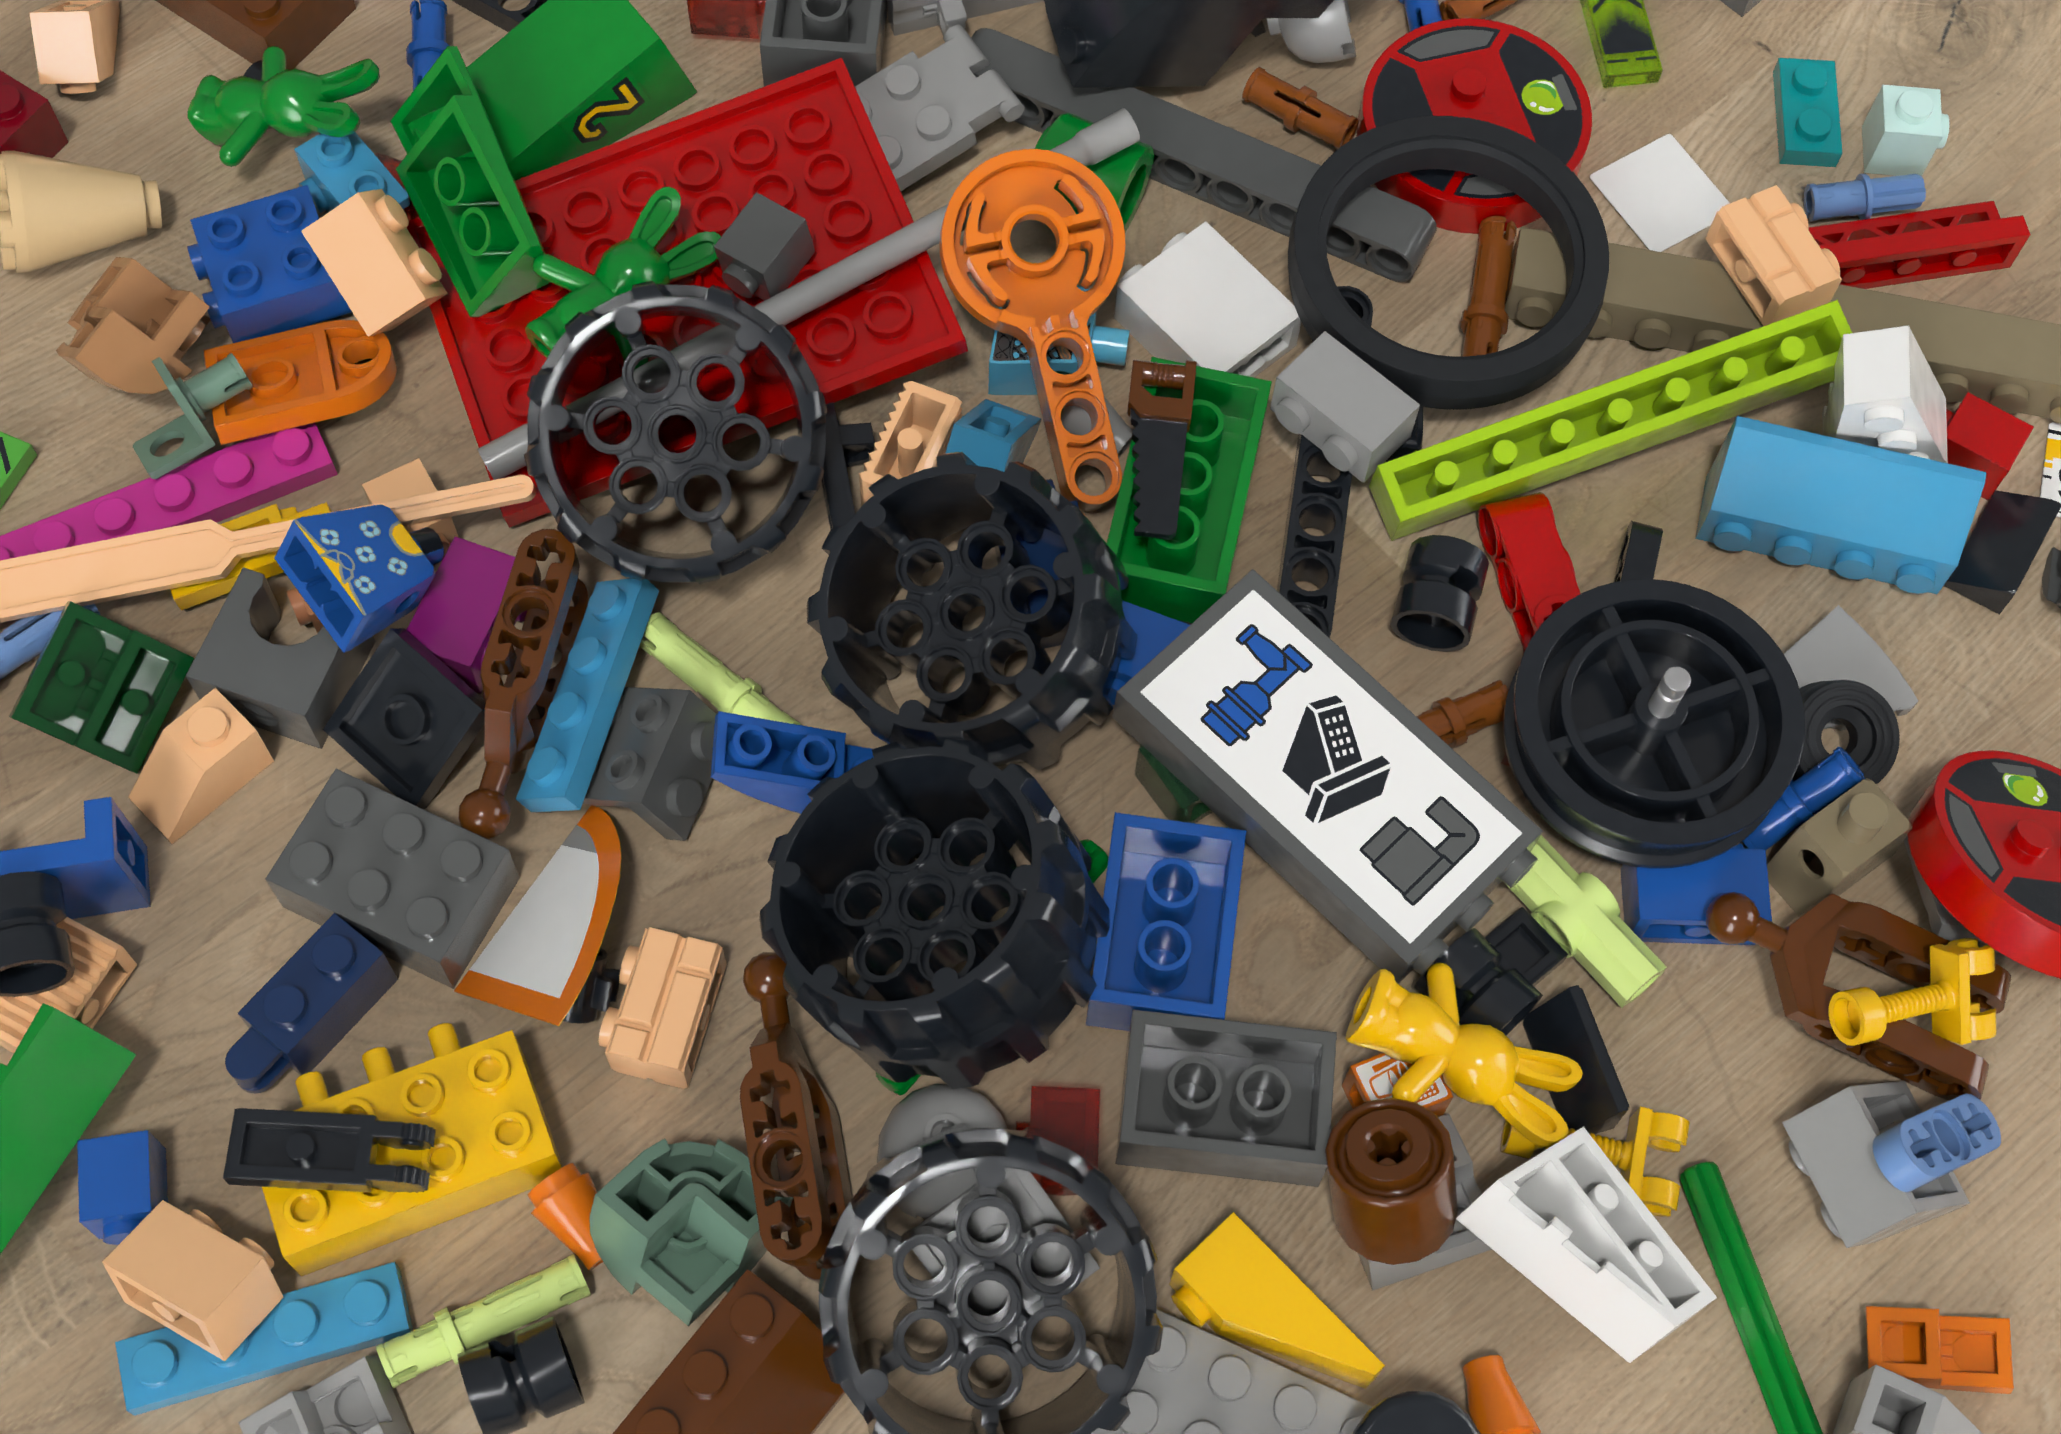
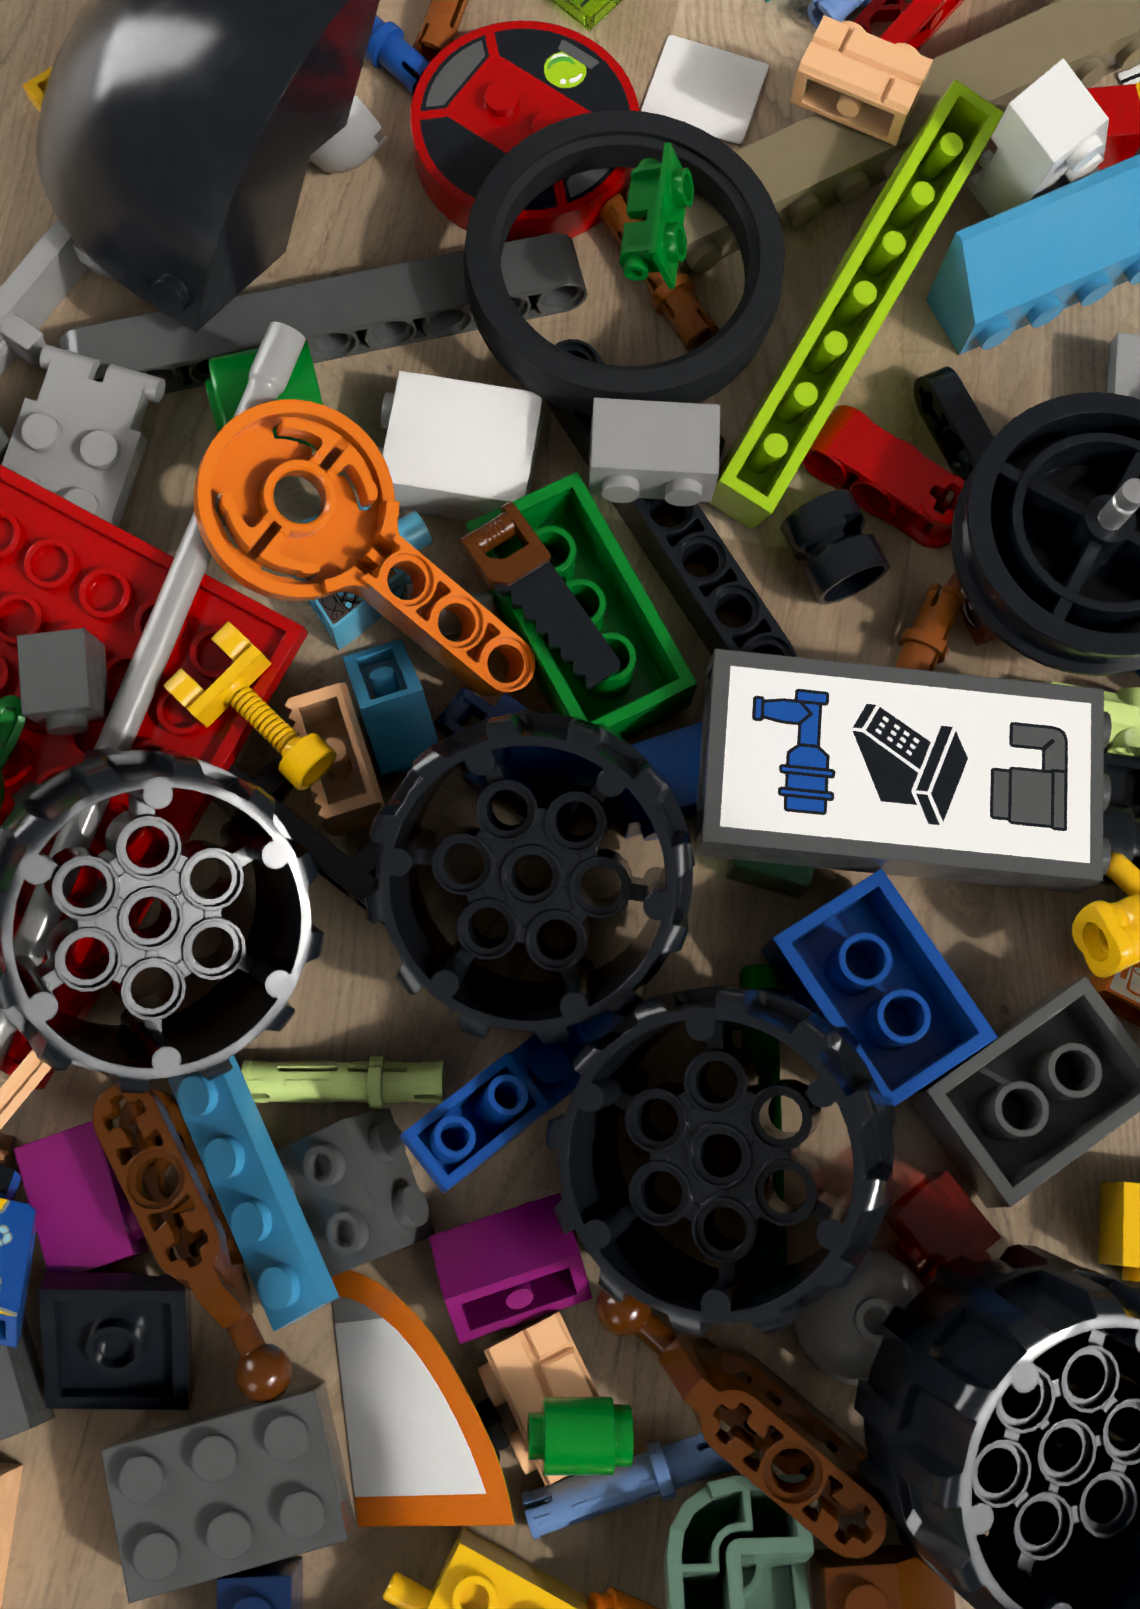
camera: 45 degrees left, 10 degrees up
(651, 1107) = (651, 1474): none -> medium blue pin
(658, 1024) = (581, 1436): none -> green brick
(706, 891) = (508, 1269): none -> magenta brick
(880, 423) = (303, 759): none -> yellow bar
(1299, 108) = (379, 216): dark orange pin -> none
(1501, 234) = (660, 195): none -> green hinge

